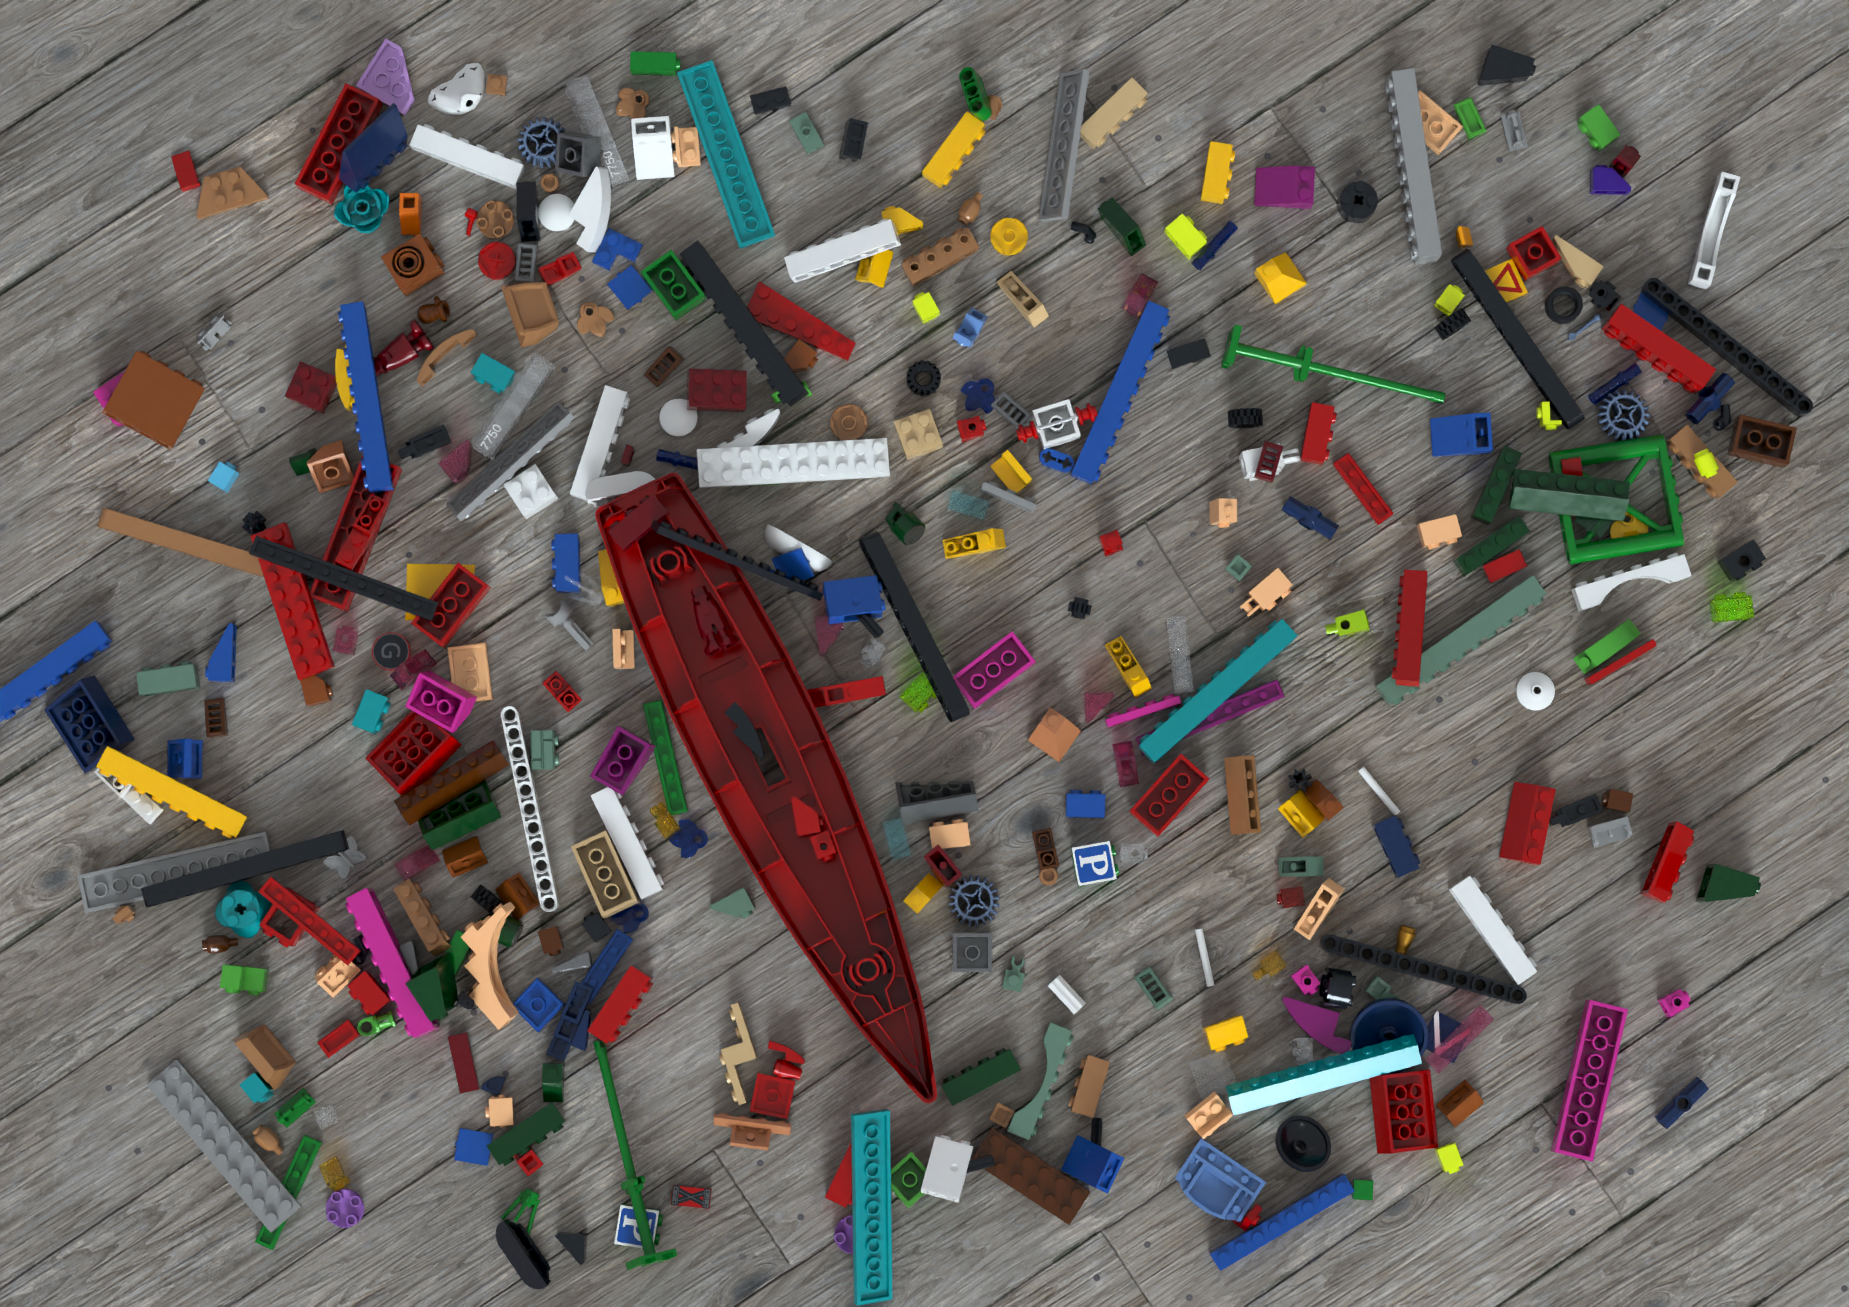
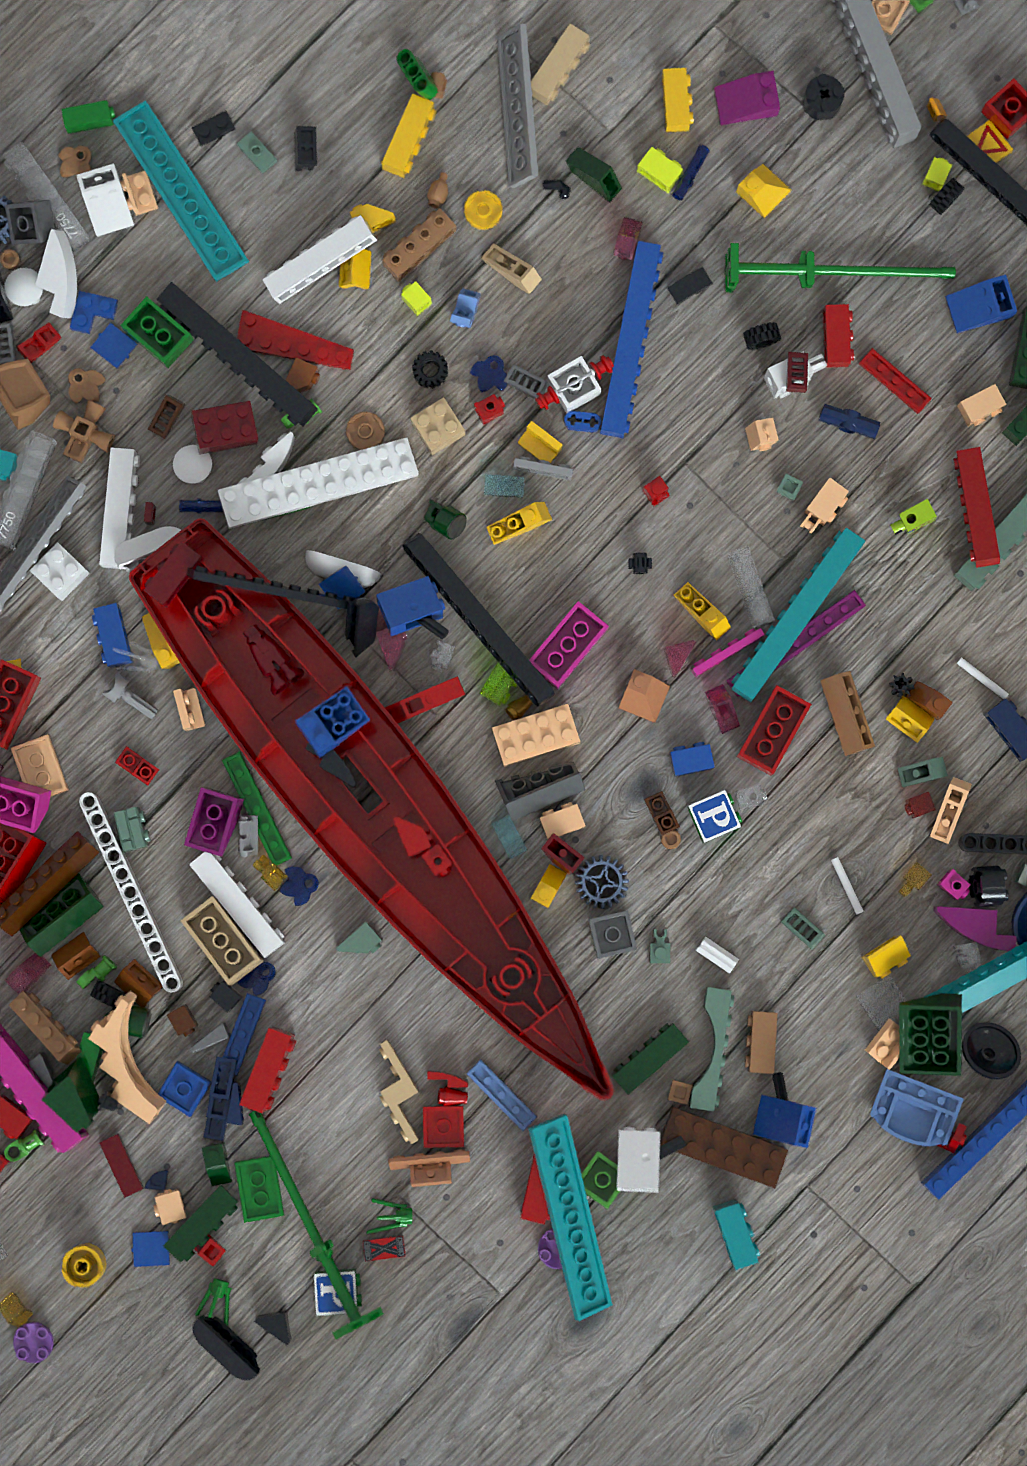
camera: 15 degrees left, 0 degrees up
(397, 1145) = (76, 1257): none -> yellow brick
(484, 877) = (99, 971): none -> bright green connector
(583, 364) = (83, 432): none -> medium nougat brick
(587, 1114) = (259, 1189): none -> green tile
(652, 780) = (248, 835): none -> light grey hinge
(715, 1170) = (403, 1216): none -> green plant
(755, 694) = (332, 722): none -> blue slope
(803, 606) = (361, 624): none -> black brick
(834, 1079) = (501, 1095): none -> medium blue tile
(933, 718) = (518, 707): none -> pearl gold cone
(943, 748) = (536, 735): none -> light nougat brick
(1023, 1259) = (736, 1234): none -> teal brick
(1249, 1115) = (931, 1035): none -> dark green slope

